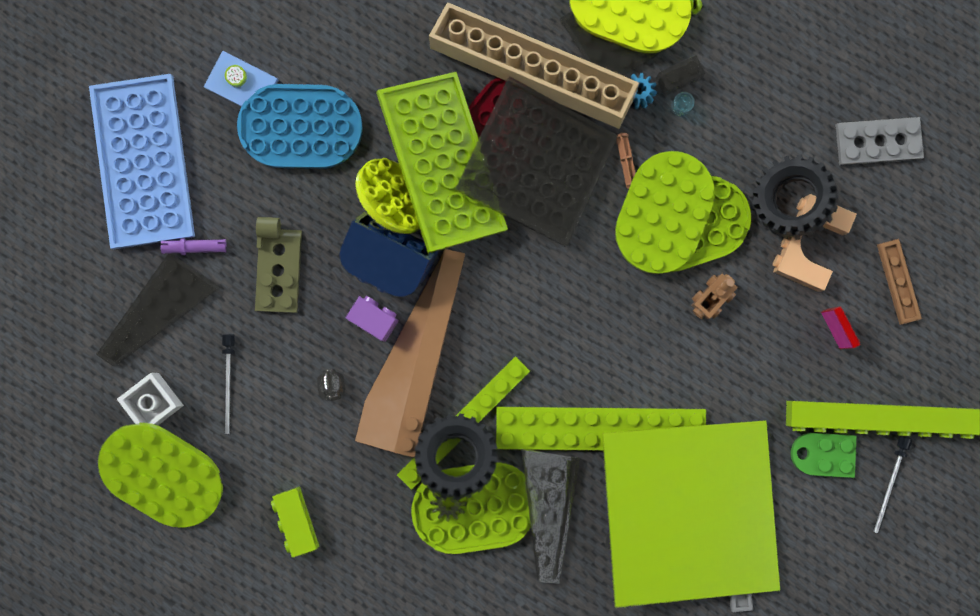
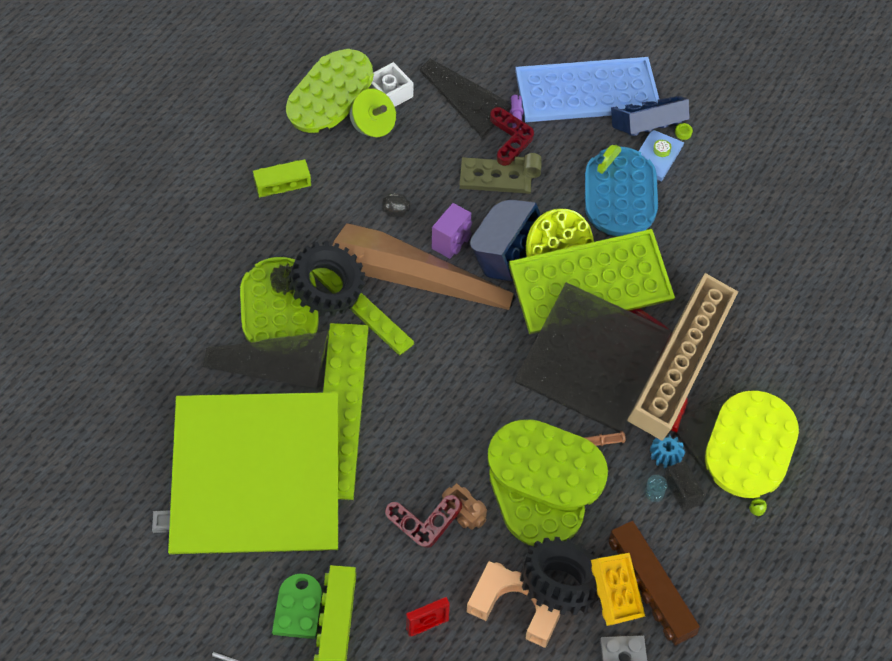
camera: 90 degrees right, 30 degrees down
(188, 87) = (650, 115): none -> wedge
(200, 419) = (373, 113): none -> lime piece
(203, 50) = (683, 131): none -> lime tile
(228, 341) = (437, 140): piece -> none
(229, 243) = (516, 133): none -> dark red beam
(258, 137) = (610, 154): none -> lime tile
(739, 332) = (428, 526): none -> dark red beam
(784, 111) = (655, 584): none -> reddish brown brick
(811, 144) = (617, 588): none -> yellow plate

